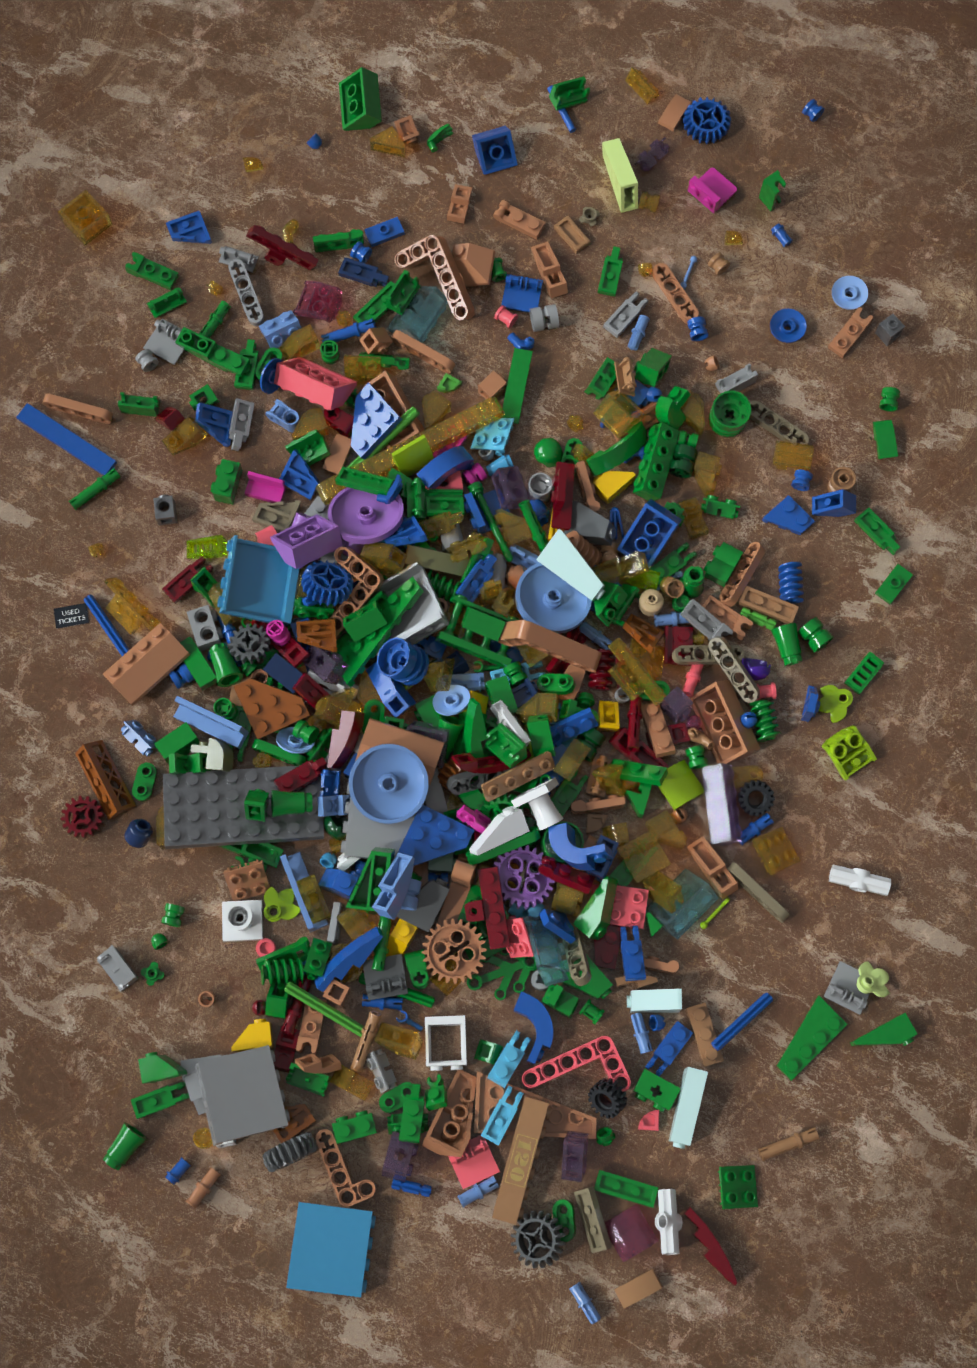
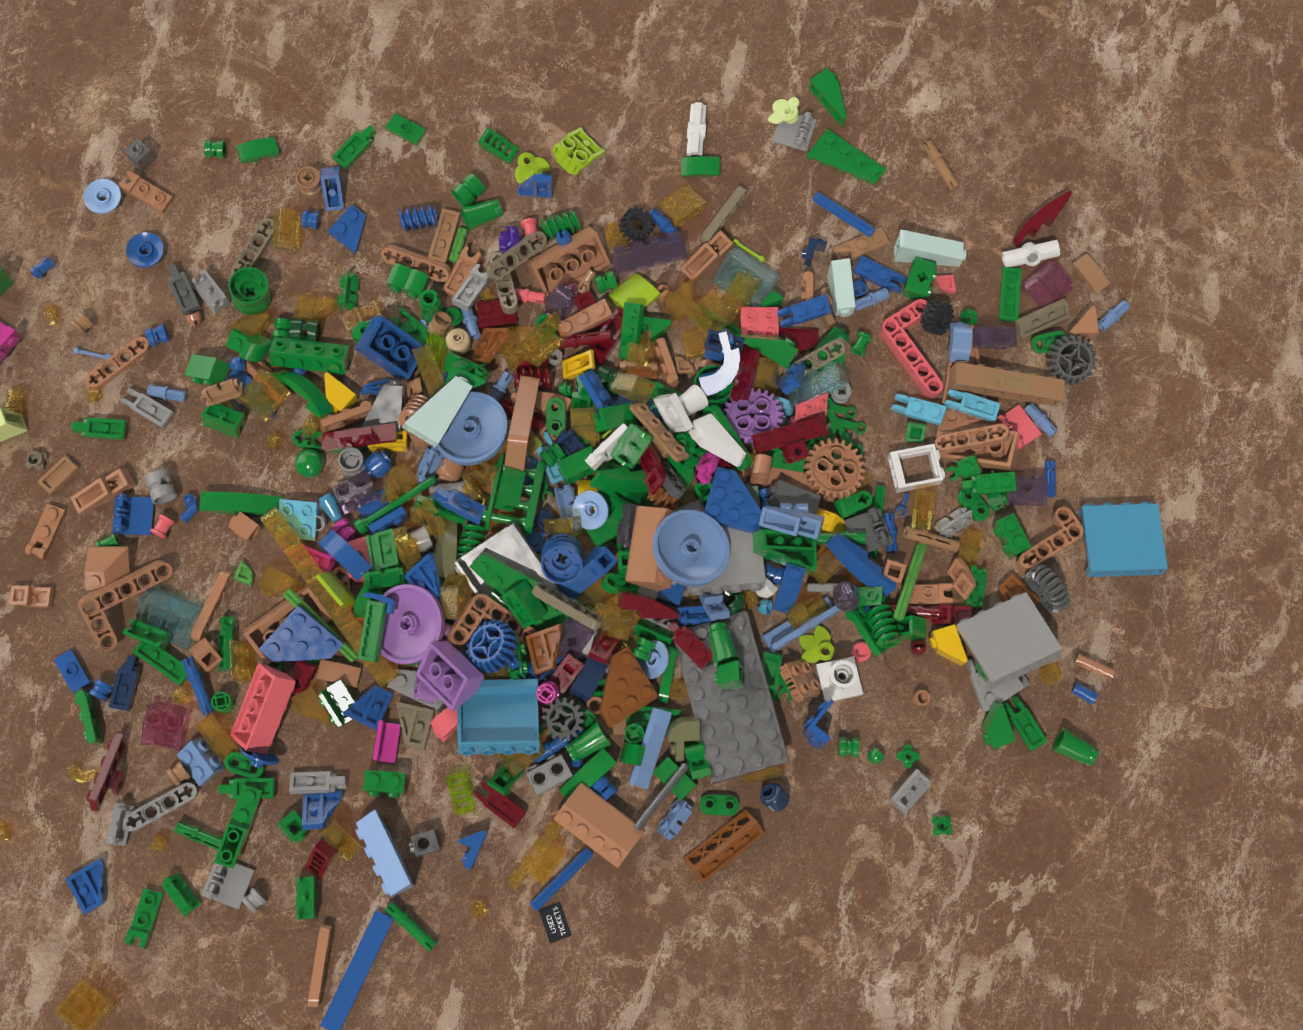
camera: 105 degrees left, 0 degrees up
(74, 989) = (946, 821): none -> green plate
(77, 823) = (755, 853): dark red gear -> none
(155, 552) = (474, 842): none -> blue slope
(159, 723) = (660, 797): none -> flat silver bar
(162, 474) = (384, 853): none -> light blue slope
(187, 882) = (815, 735): none -> blue bracket
(203, 703) = (632, 754): none -> green slope
(272, 308) = (178, 773): none -> medium nougat wheel
(282, 414) = (302, 739): medium blue piece -> none
(318, 936) = (846, 596): none -> clear purple head
(357, 661) = (567, 606): none -> dark tan beam
(462, 1106) = (972, 441): none -> nougat beam
(538, 533) = (402, 456): green pin -> none
(539, 1016) = (881, 385): blue arch -> none
(560, 1000) = (858, 370): green brick -> none
(574, 1115) = (960, 342): none -> medium blue brick
(575, 1265) = (1087, 326): none -> nougat slope
(702, 974) = (813, 244): none -> dark blue bracket
(738, 1187) = (987, 203): green hinge -> none
(741, 355) = (182, 291): none -> dark grey hinge
(816, 877) = (700, 166): none -> green slope

